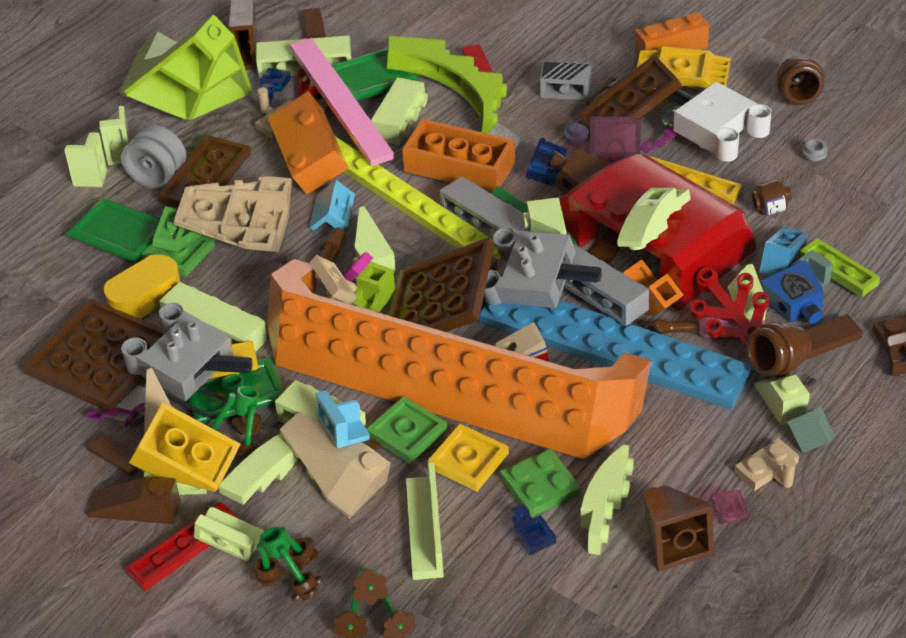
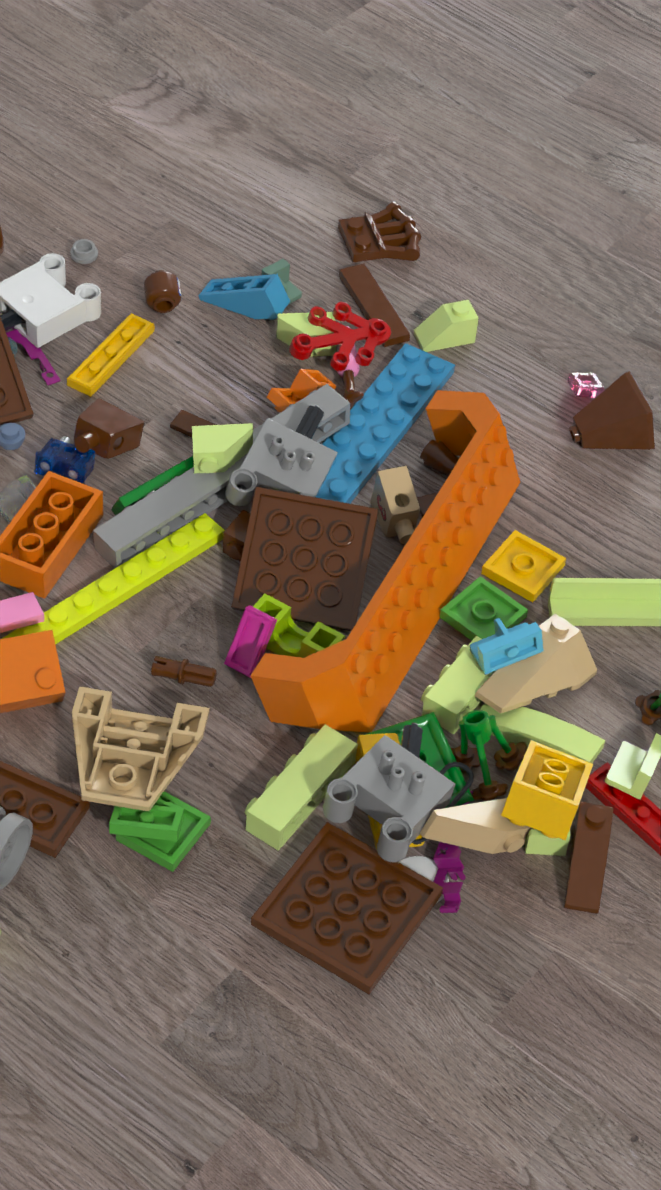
camera: 95 degrees left, 5 degrees up
(113, 452) = (509, 884): reddish brown piece -> none
(116, 229) = (114, 896): green piece -> none
(142, 285) = (235, 861): yellow brick -> none
(333, 206) = (106, 671): medium azure panel -> none
(337, 286) = (284, 641): tan plate -> none
(371, 240) = (188, 631): yellowish green slope -> none
(532, 532) = (620, 522): clear blue plate -> none
(540, 482) = (552, 516): bright green plate -> none
(604, 496) = (584, 472): yellowish green slope -> none
(615, 137) = (63, 395): clear pink slope -> none
(650, 216) = (267, 338): yellowish green slope -> none
(698, 235) = (200, 367): red slope -> none
(771, 462) = (533, 357): tan plate -> none
(777, 348) = (410, 310): reddish brown piece -> none
(795, 293) = (313, 289): blue torso -> none
(811, 429) = (494, 314): sand green panel -> none
(844, 269) = (292, 251): lime plate -> none

